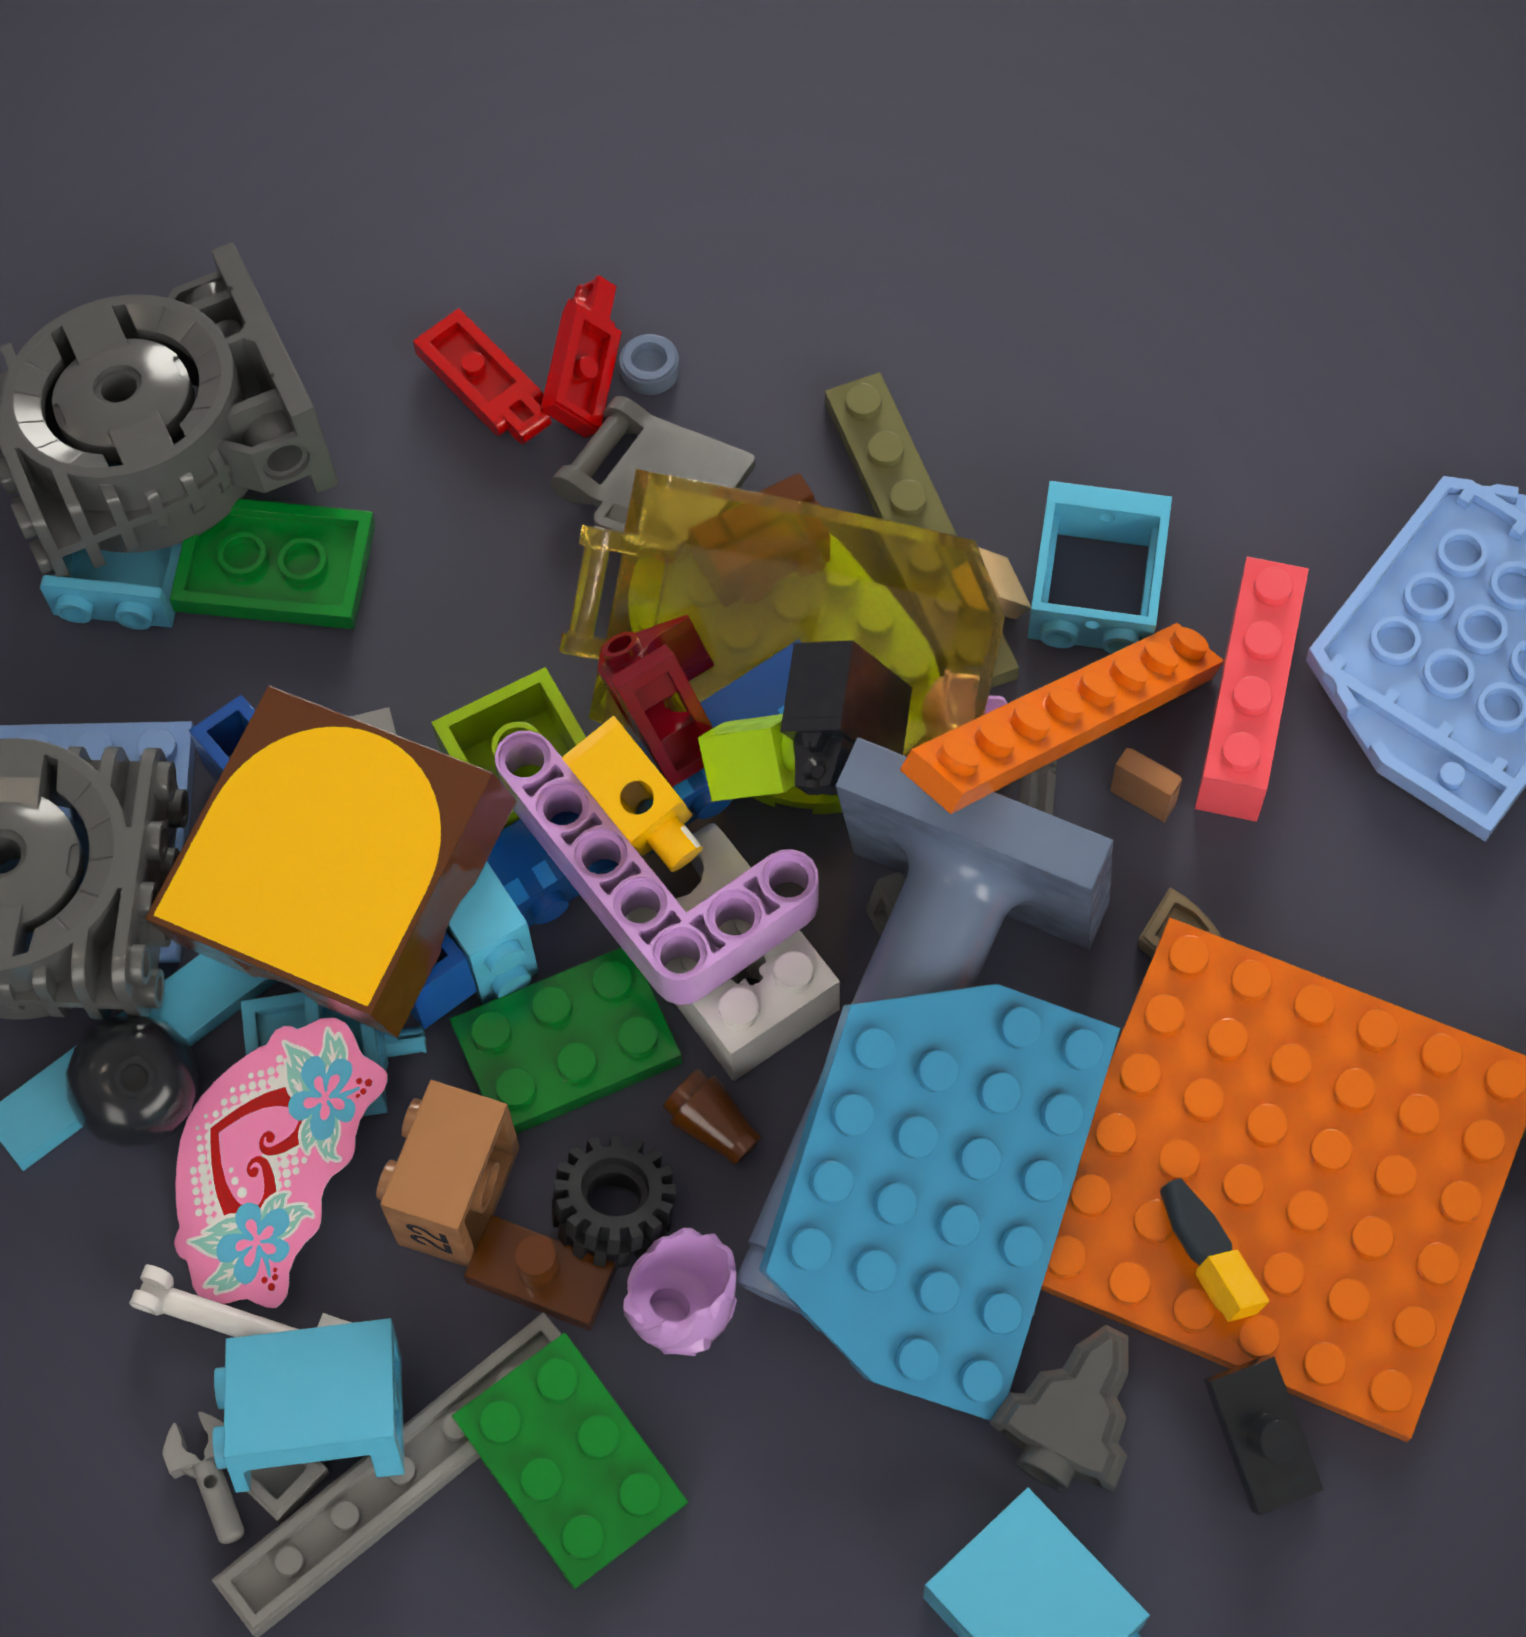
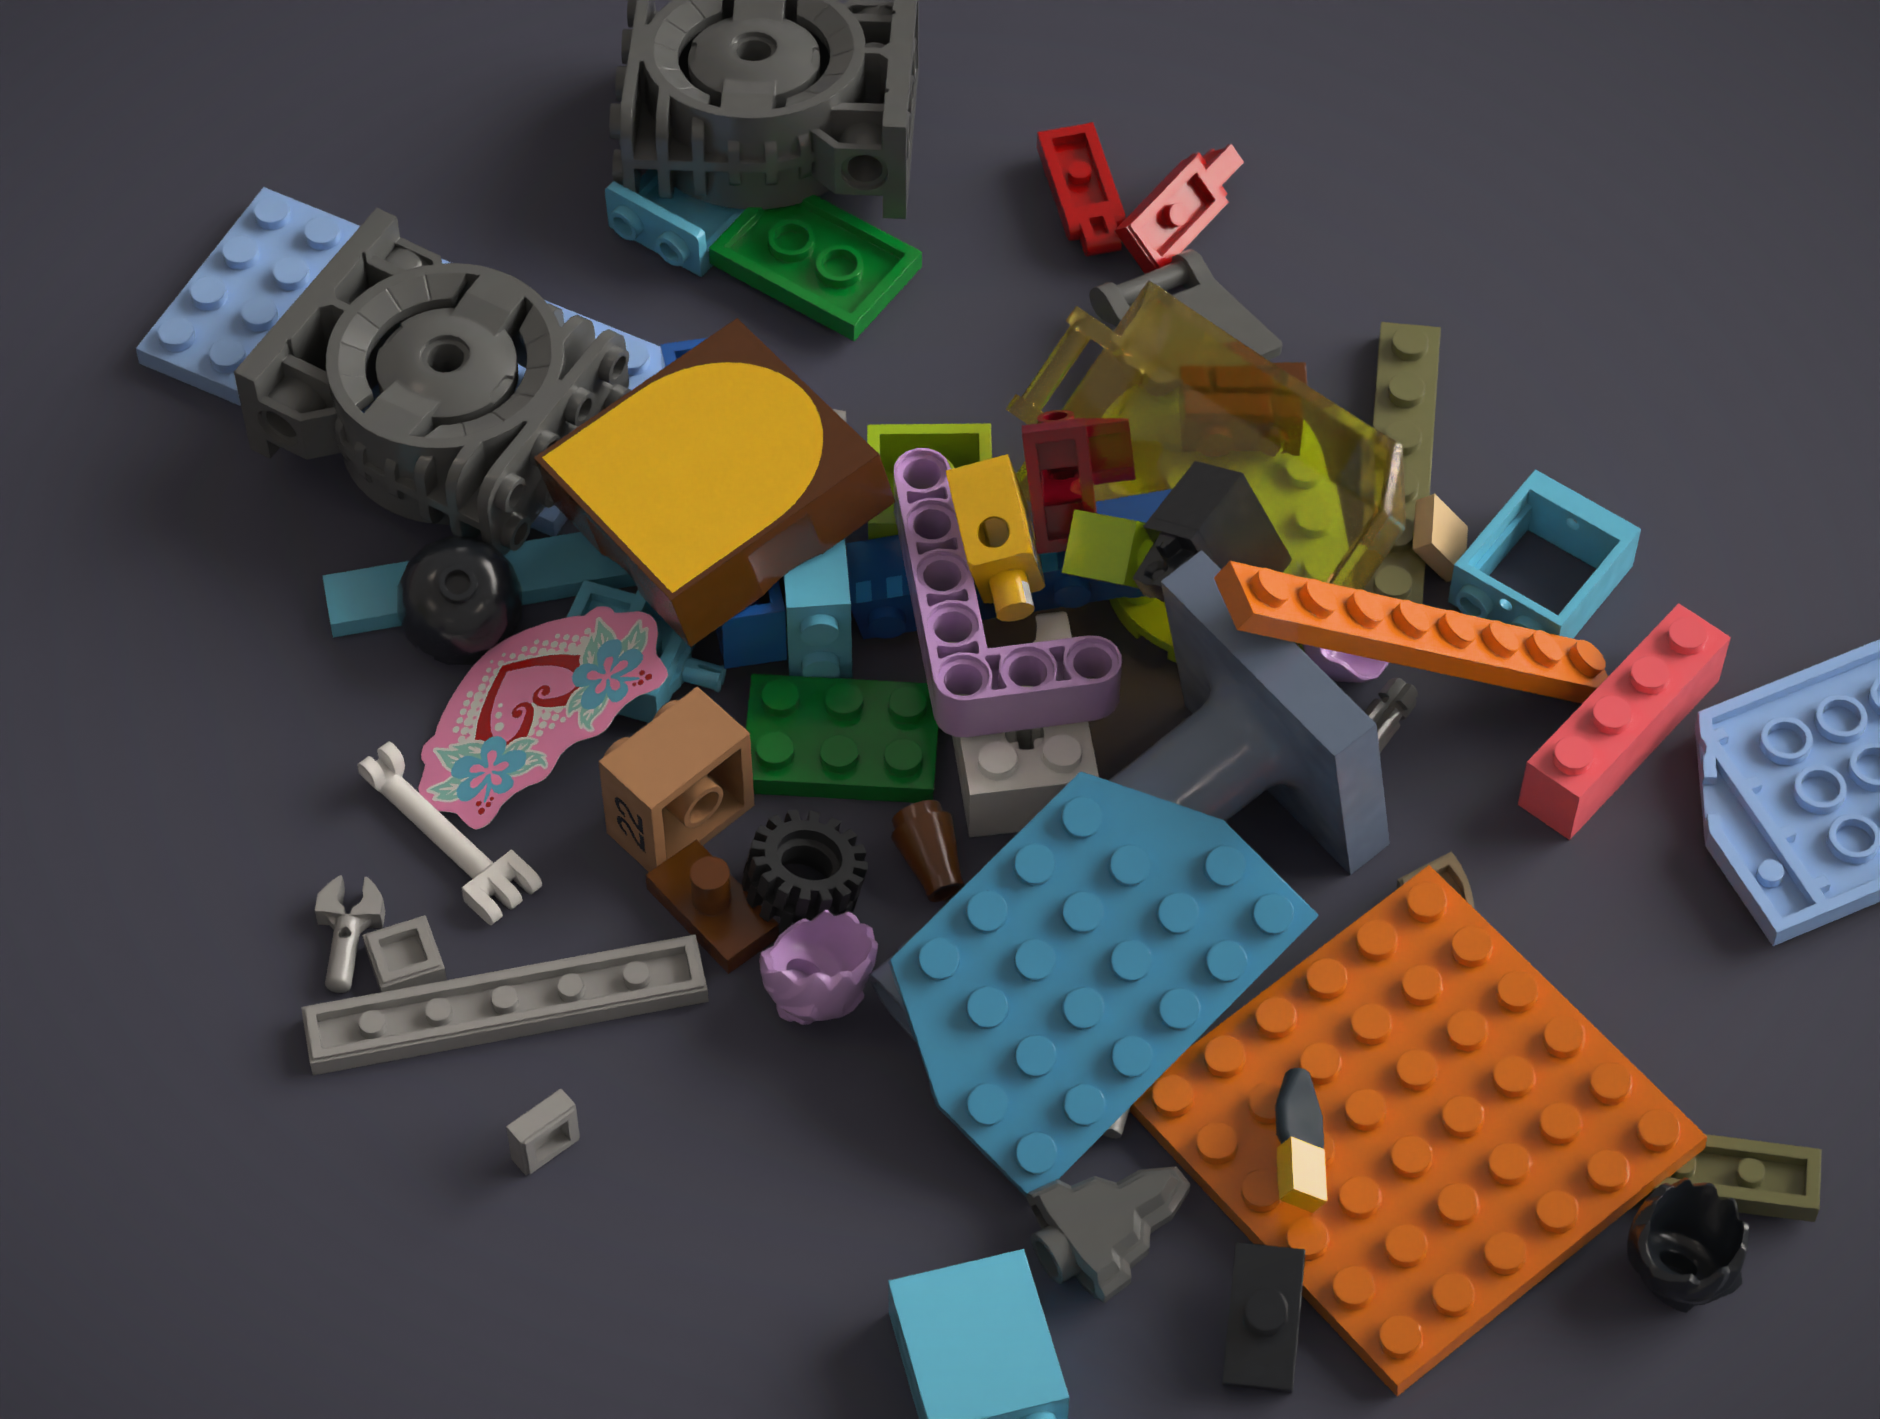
camera: 25 degrees right, 10 degrees down
(310, 1399) = (464, 900): medium azure panel -> none
(516, 1592) = (543, 1132): none -> light grey tile
(569, 1460) = (648, 1055): green plate -> none
(649, 364) = (1238, 239): sand blue tile -> none
(1146, 784) = (1478, 757): medium nougat tile -> none

